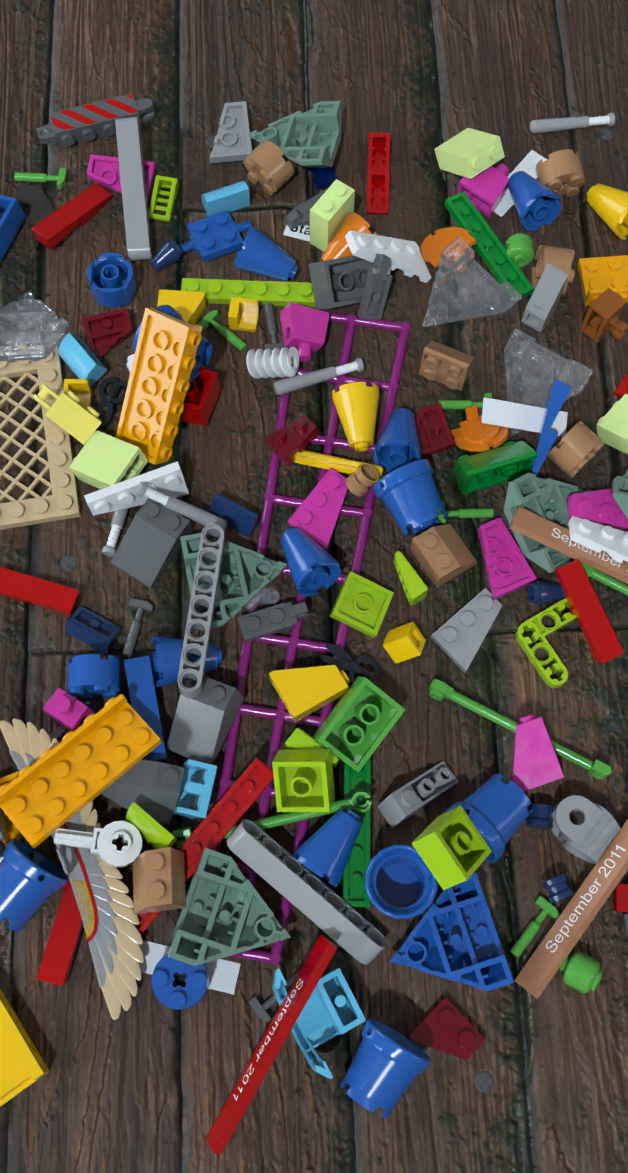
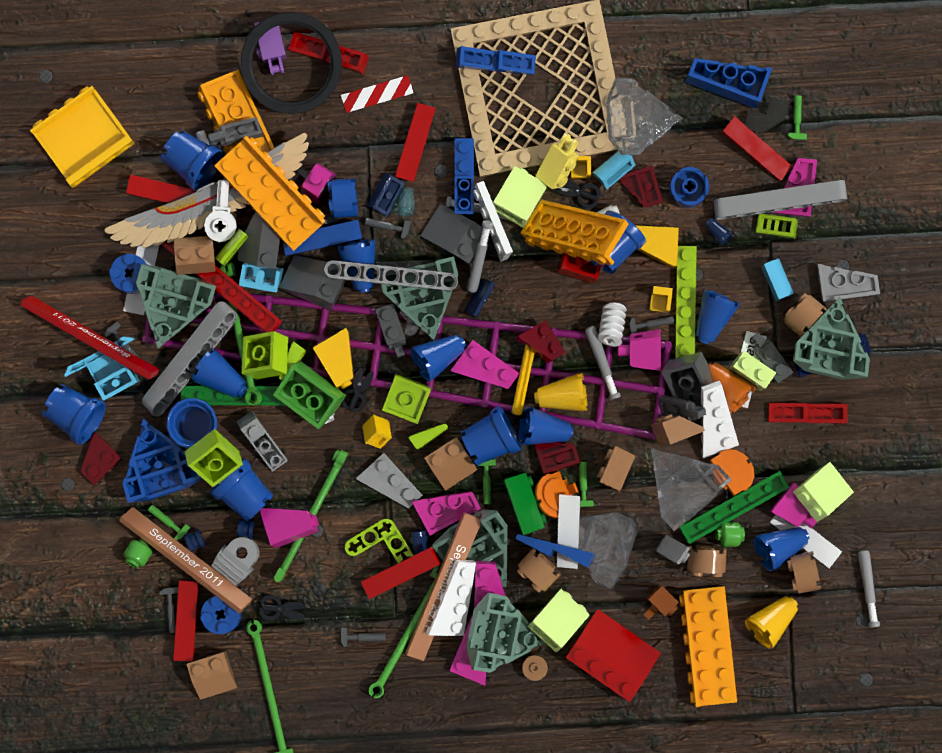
camera: 90 degrees right, 15 degrees up
(77, 531) = (464, 175): none -> blue slope
(93, 120) = (855, 161): dark grey hinge -> none
(109, 601) = (406, 203): none -> clear light blue cone
(215, 236) = (740, 272): blue plate -> none
(222, 330) = (648, 282): bright green piece -> none
(362, 479) = (506, 398): medium nougat wheel -> none
(401, 296) = (674, 429): none -> medium nougat slope

